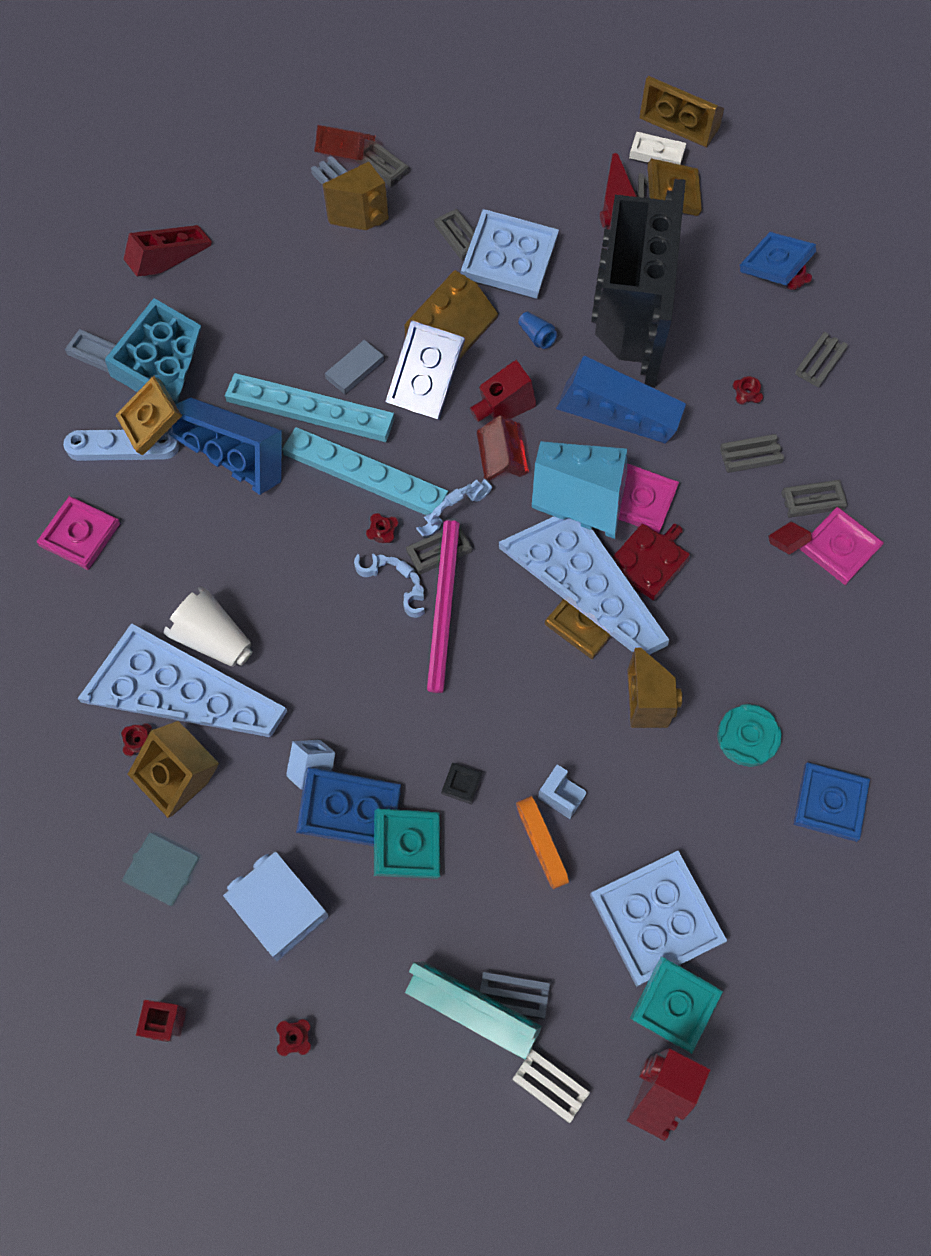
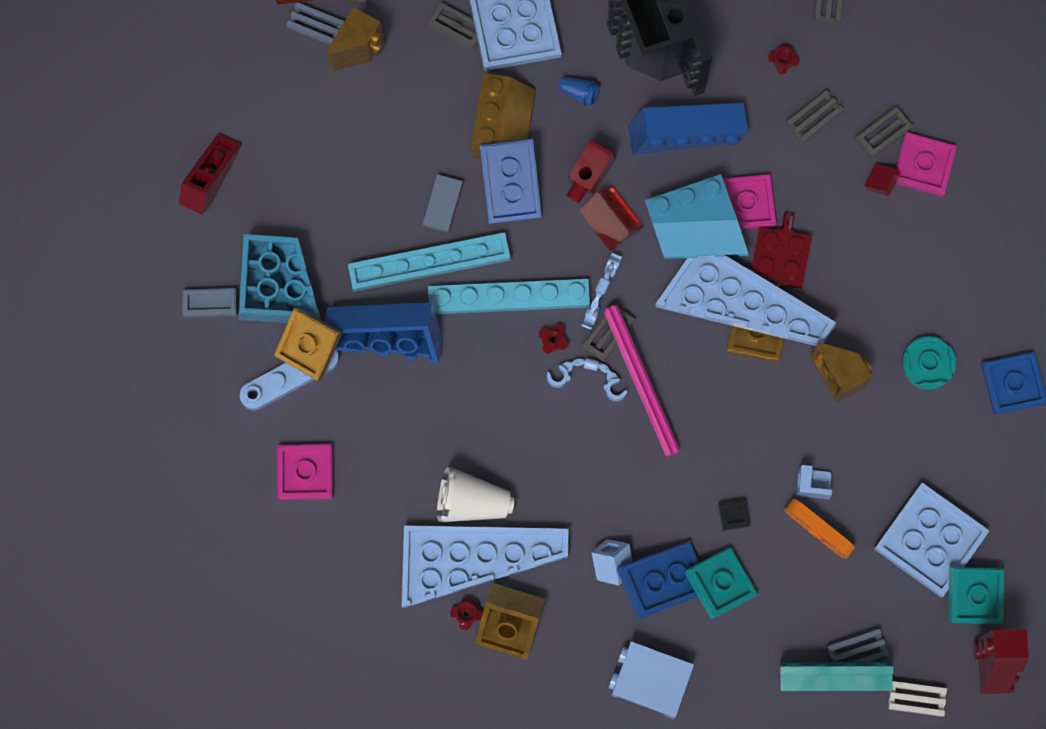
camera: 30 degrees left, 10 degrees up
(160, 869) = (546, 700): clear light blue piece -> none

